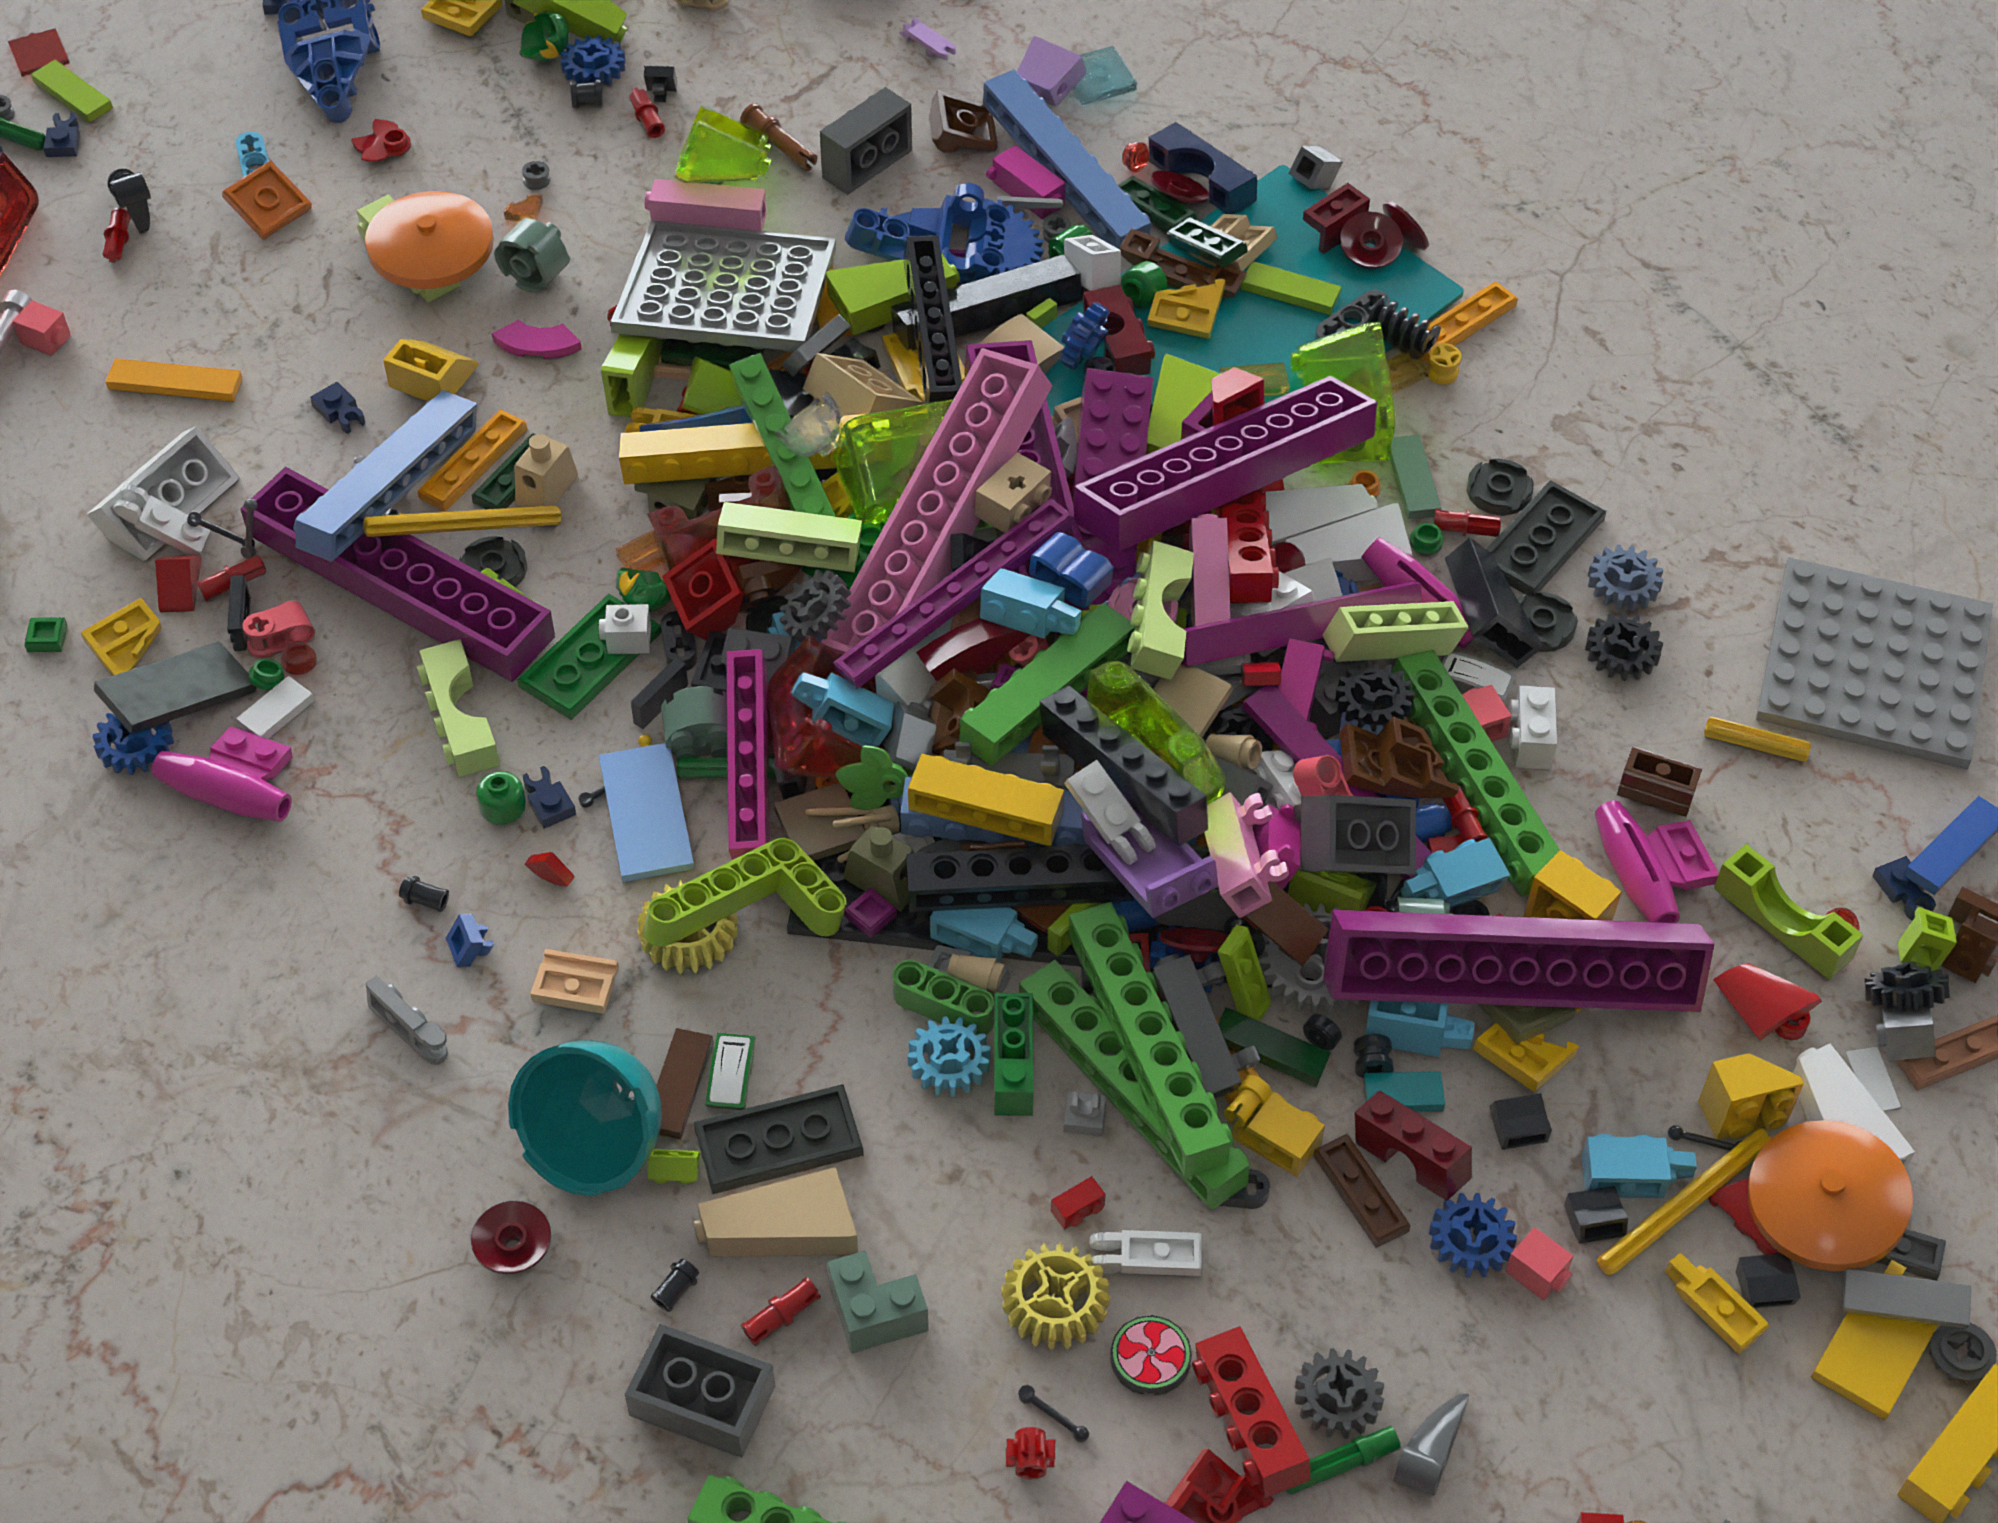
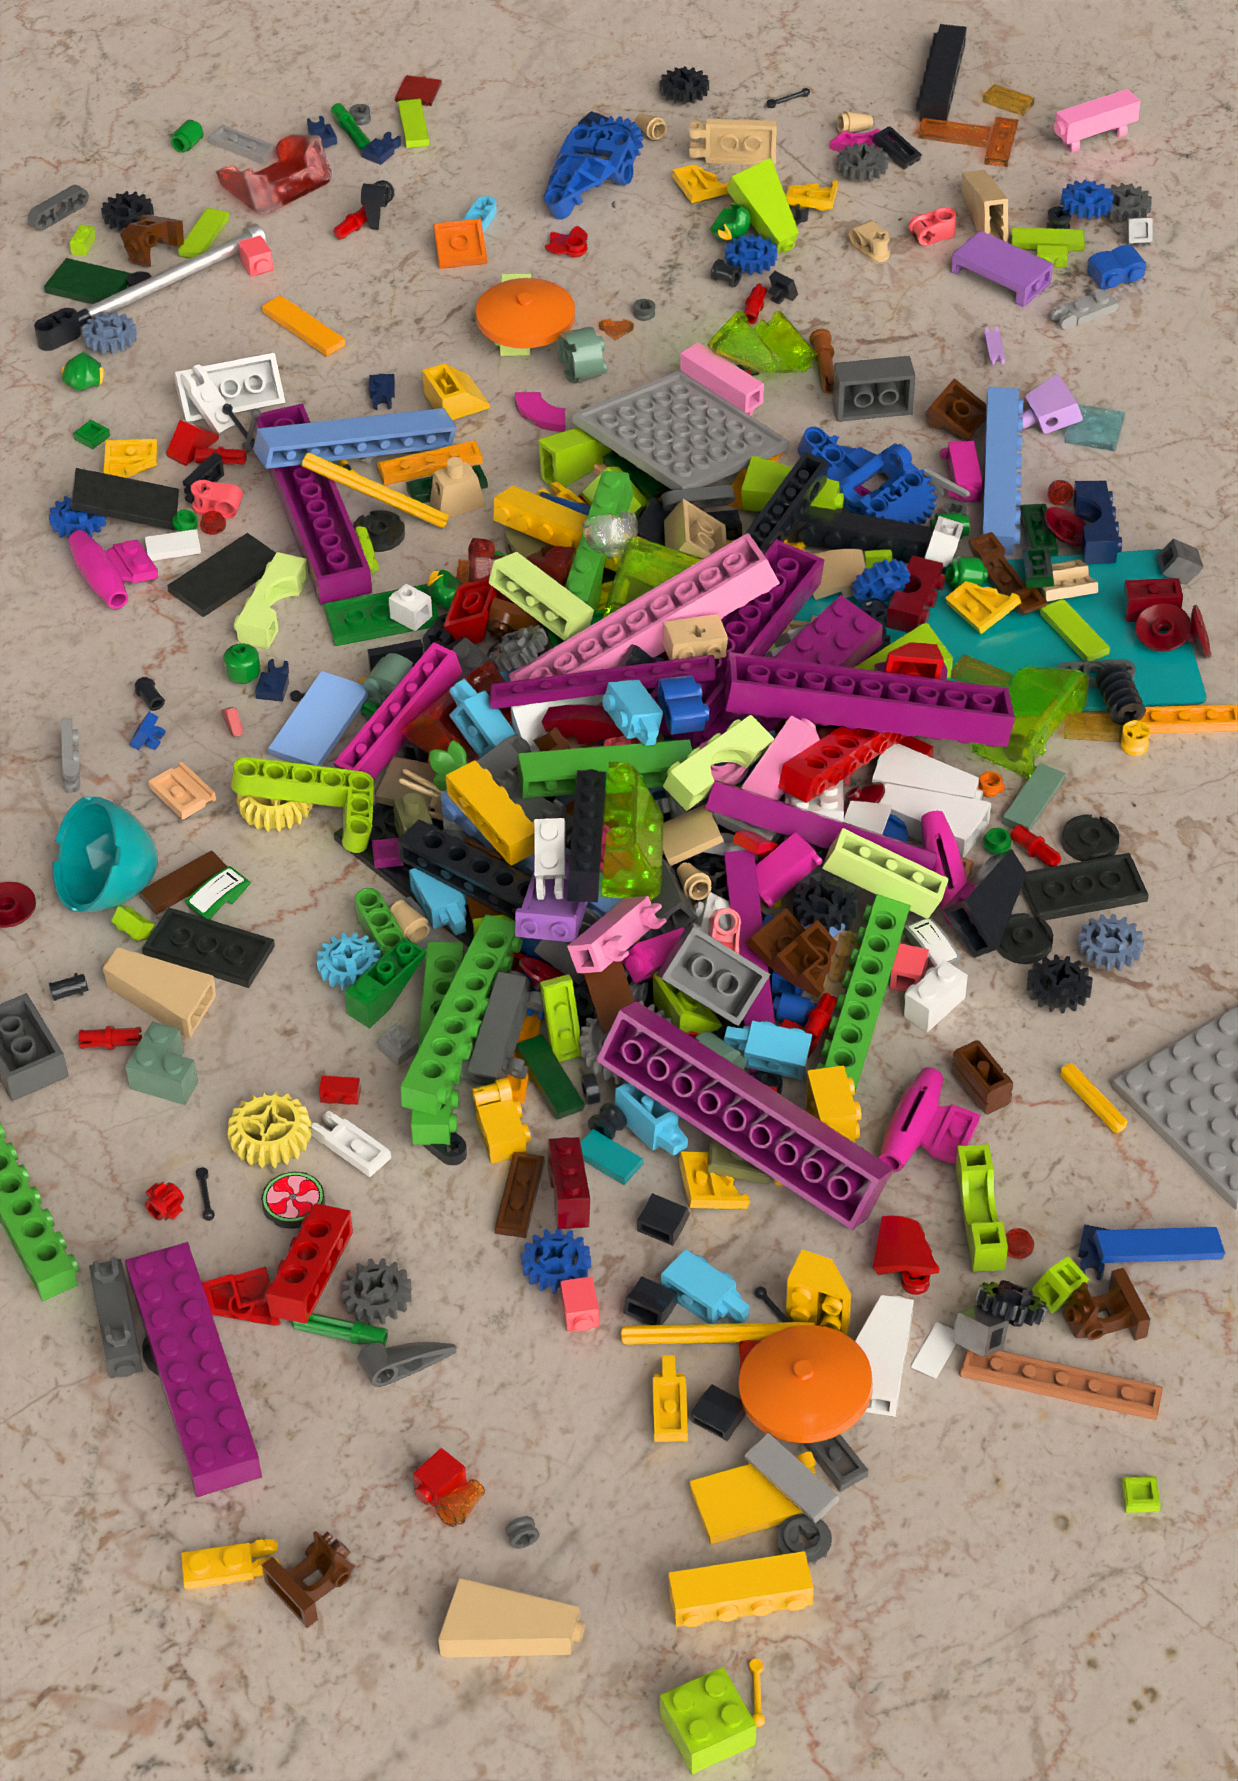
camera: 40 degrees right, 5 degrees down
(370, 709) = (223, 575): none -> pearl dark grey tile

